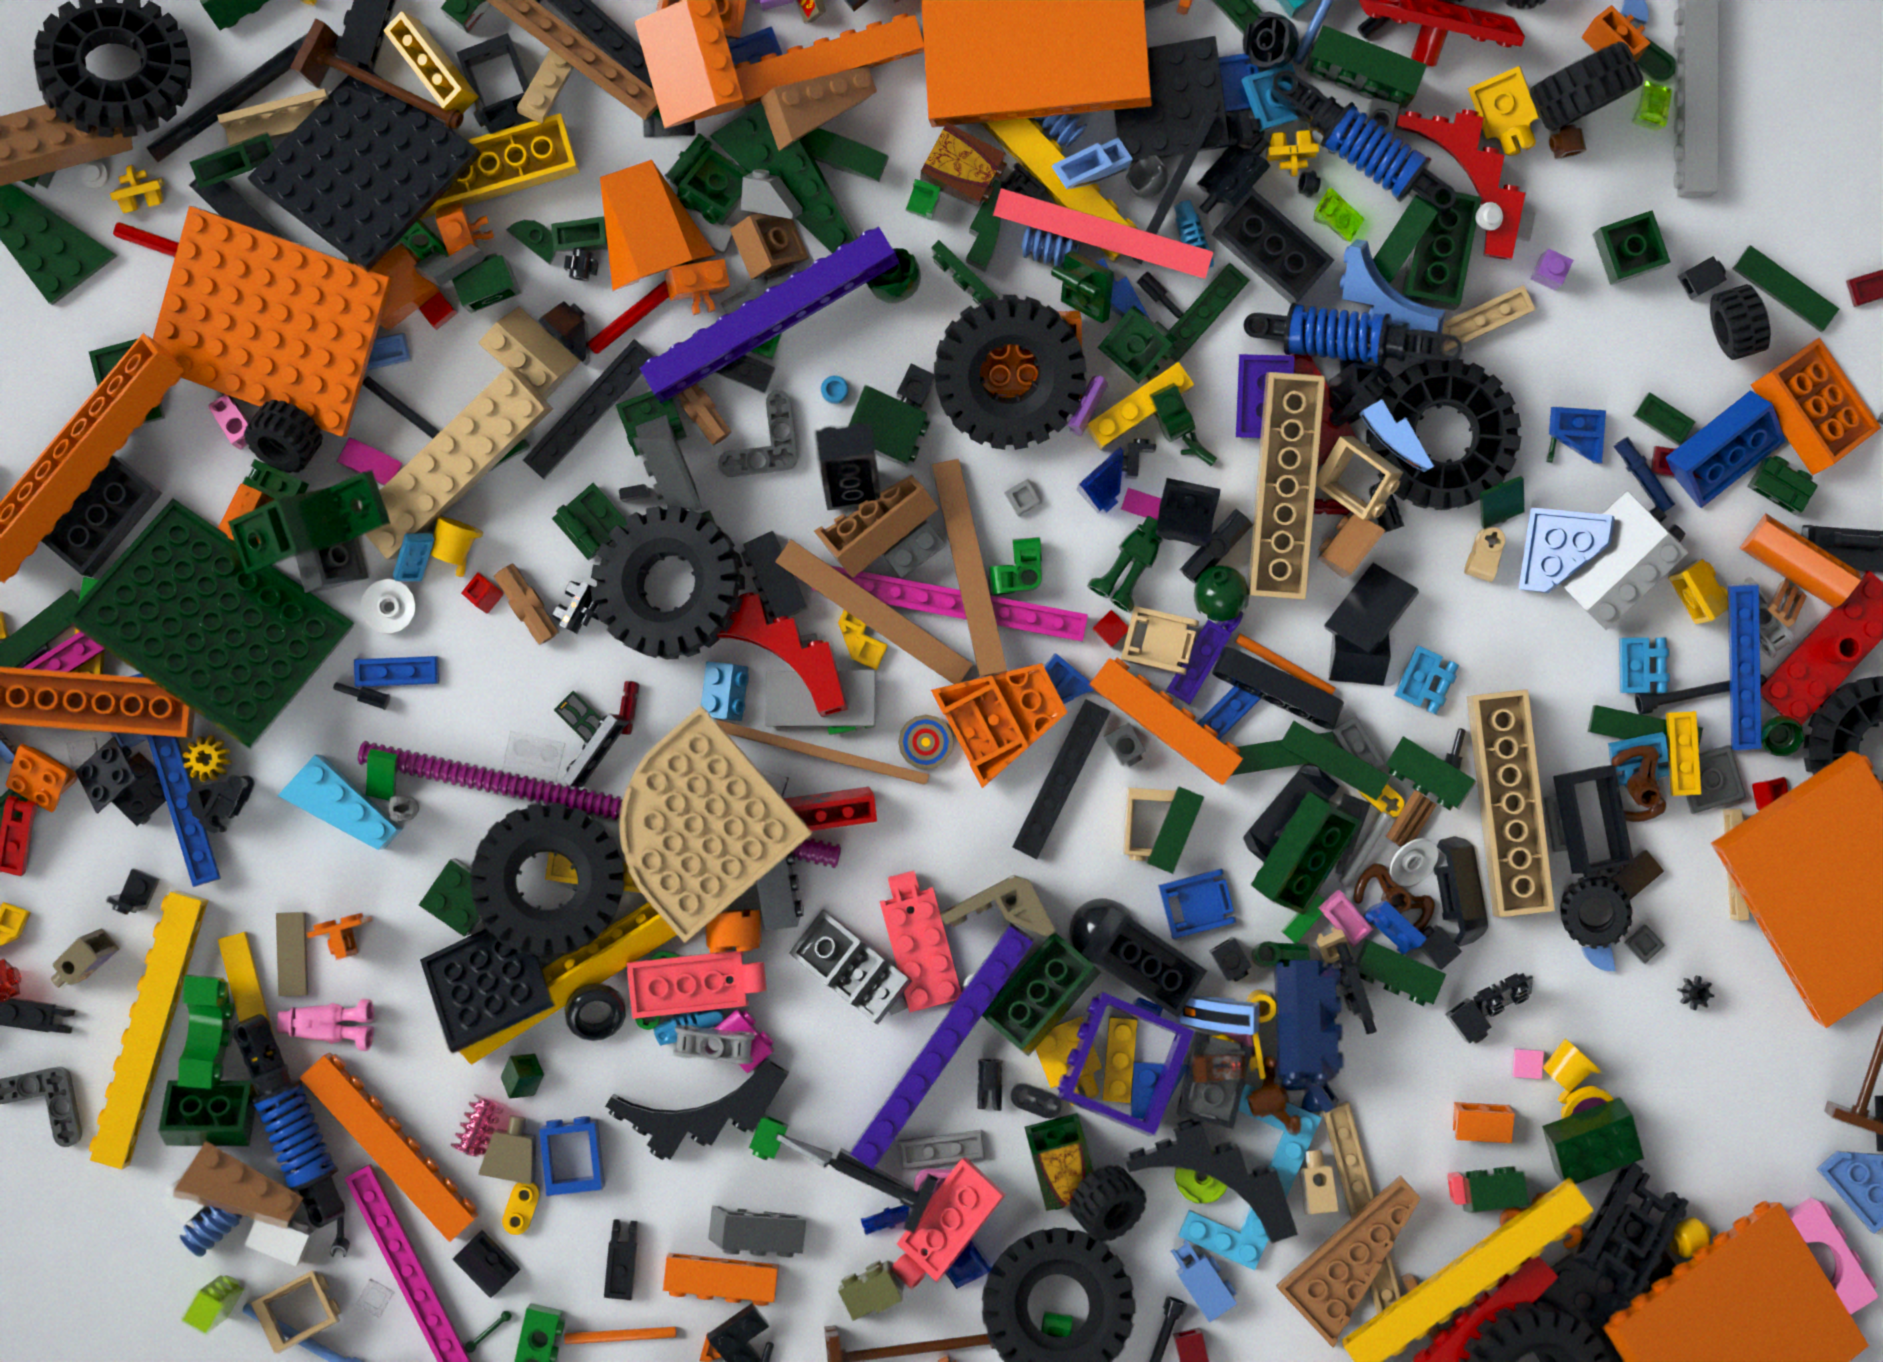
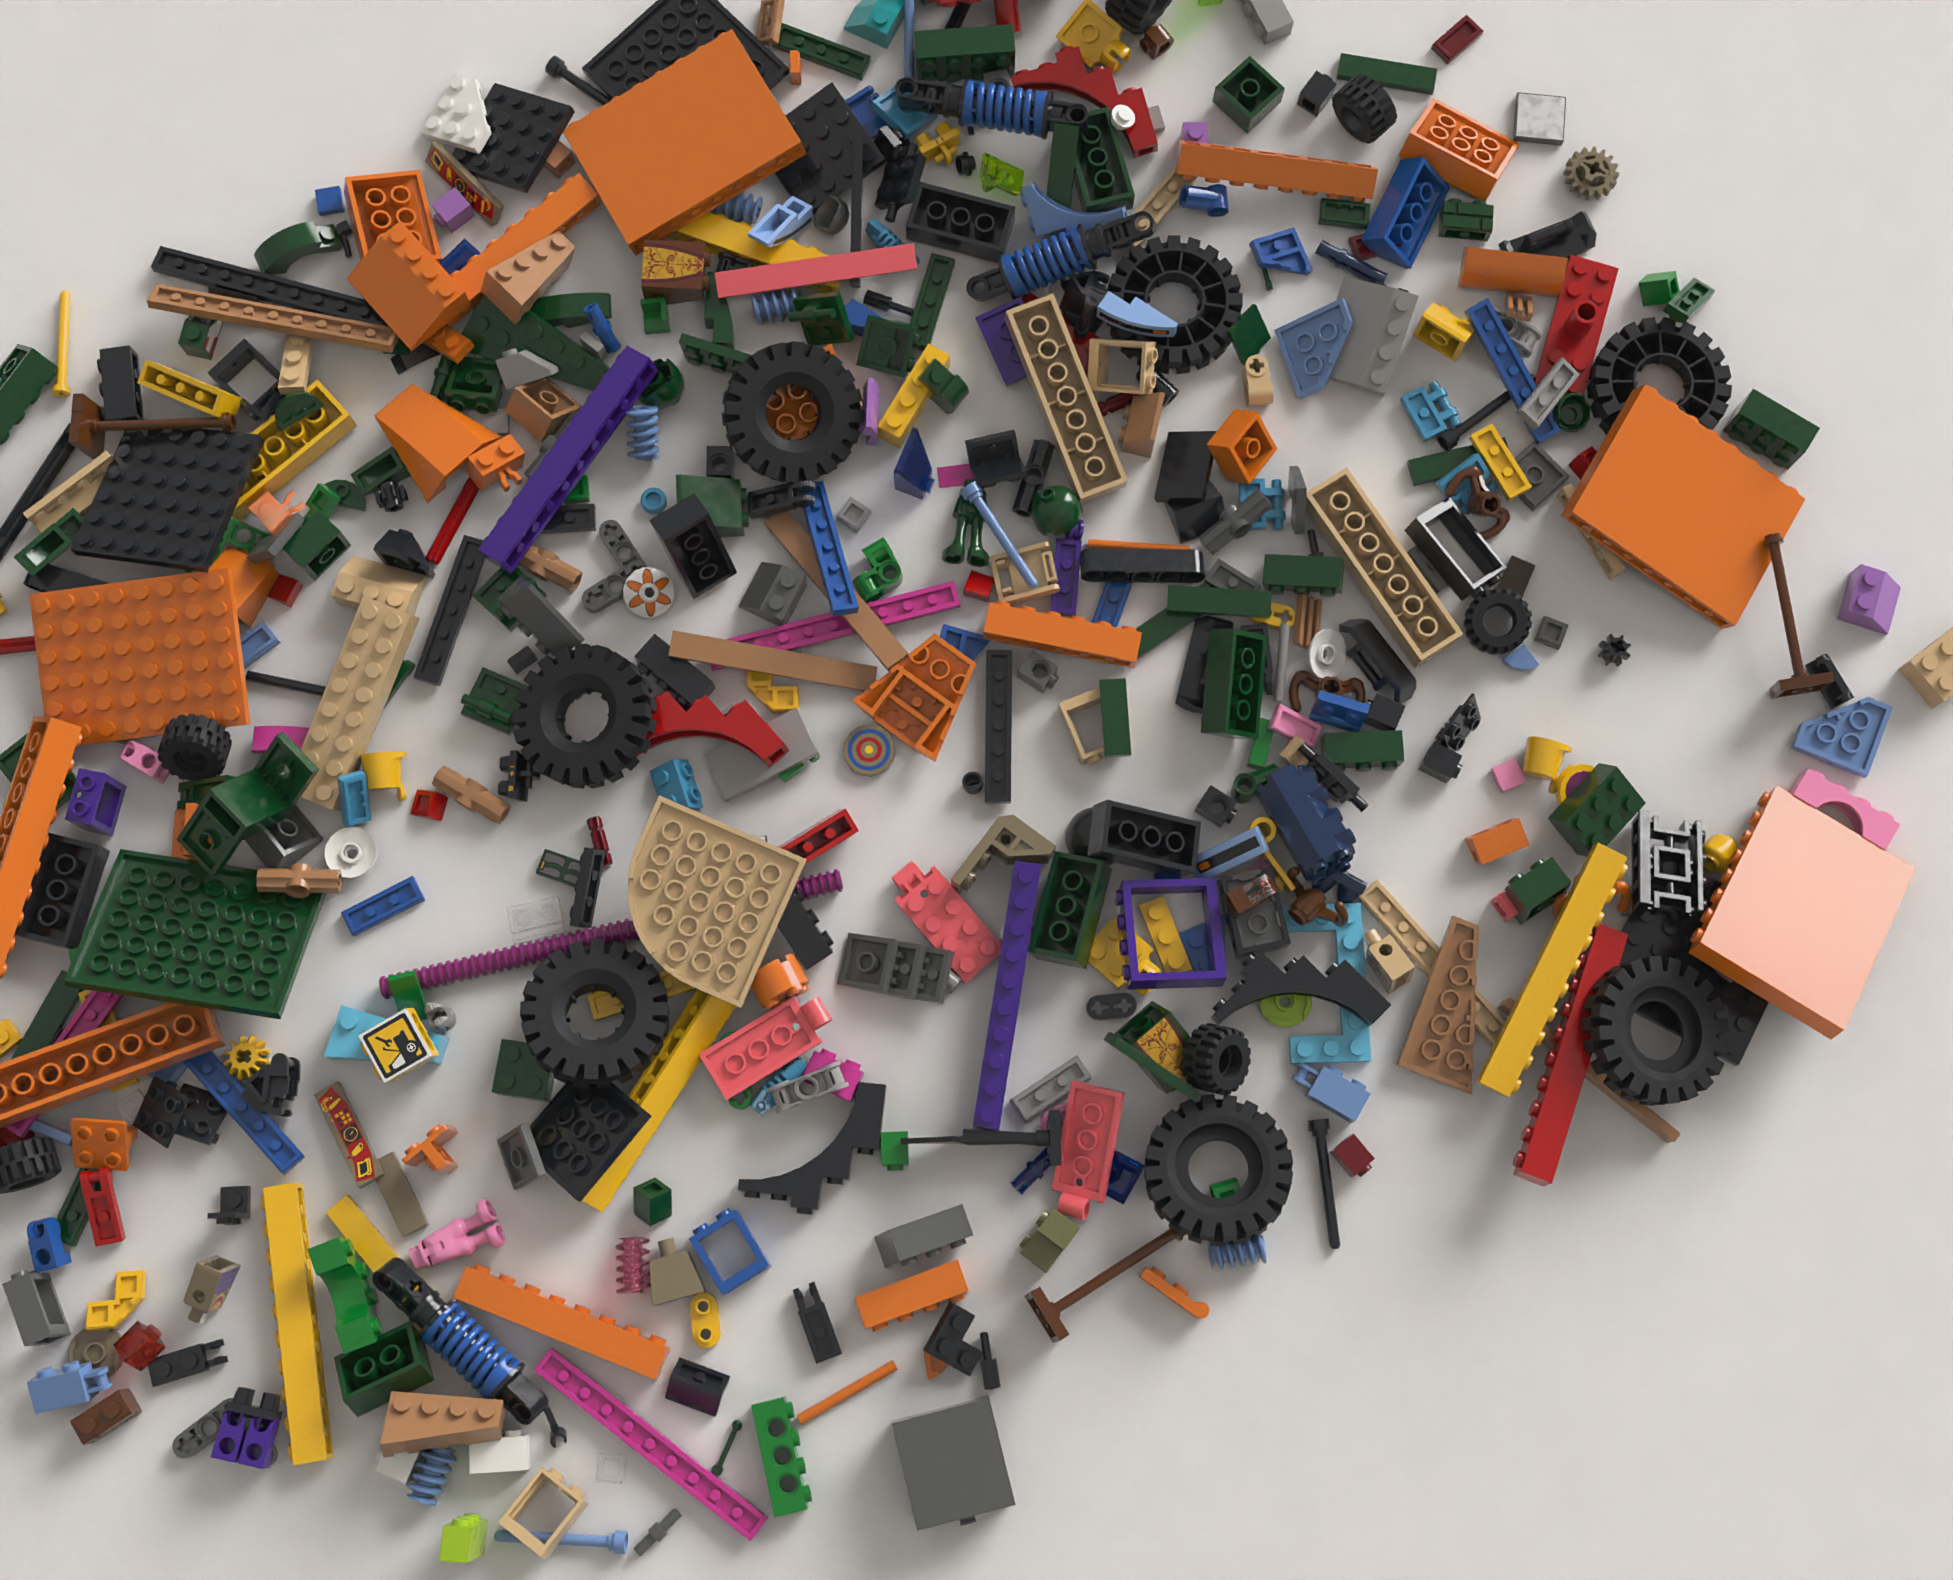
camera: 25 degrees left, 10 degrees down
(62, 1108) = (248, 1430): none -> dark purple hips
(171, 447) = (96, 790): none -> dark purple window
(270, 877) = (349, 1135): none -> tile
(327, 613) = (299, 880): none -> medium nougat piece
(350, 823) = (398, 1045): none -> piece
(365, 695) = (364, 938): black axle -> none
(419, 977) = (521, 1156): none -> dark grey tile
(510, 241) = (323, 500): none -> green plate
(526, 135) = (295, 407): none -> dark green plate
(600, 1030) = (675, 1100): black wheel -> none
(708, 137) = (450, 344): none -> orange plate
(786, 469) = (634, 592): none -> white dish
(824, 753) = (794, 796): medium nougat tile -> none
(848, 201) = (592, 345): none -> light grey tile
(855, 319) = (644, 432): none -> medium blue piece
(864, 189) = (602, 328): none -> blue pin
(877, 525) = (741, 587): medium nougat wedge -> none
(956, 450) = (780, 498): none -> black hinge
(979, 525) = (829, 554): none -> blue plate
(989, 1079) = (1061, 1005): black hinge -> none
(1011, 818) = (971, 779): none -> black hinge
(1042, 1184) = (1152, 1066): none -> dark green tile
(1131, 459) = (927, 432): black bracket -> none
(1148, 540) = (973, 494): none -> medium blue piece
(1197, 449) = (979, 410): dark green bar -> none
(1201, 903) = (1167, 773): blue container -> none
(1270, 40) = (878, 67): black cylinder -> none
(1391, 689) = (1235, 521): none -> dark grey piece
(1435, 617) = (1242, 446): none -> orange brick
(1465, 695) = (1298, 494): none -> dark grey tile
(1535, 339) = (1209, 199): none -> blue piece
(1617, 344) = (1276, 170): none -> orange brick
(1767, 707) = (1547, 393): none -> light grey tile

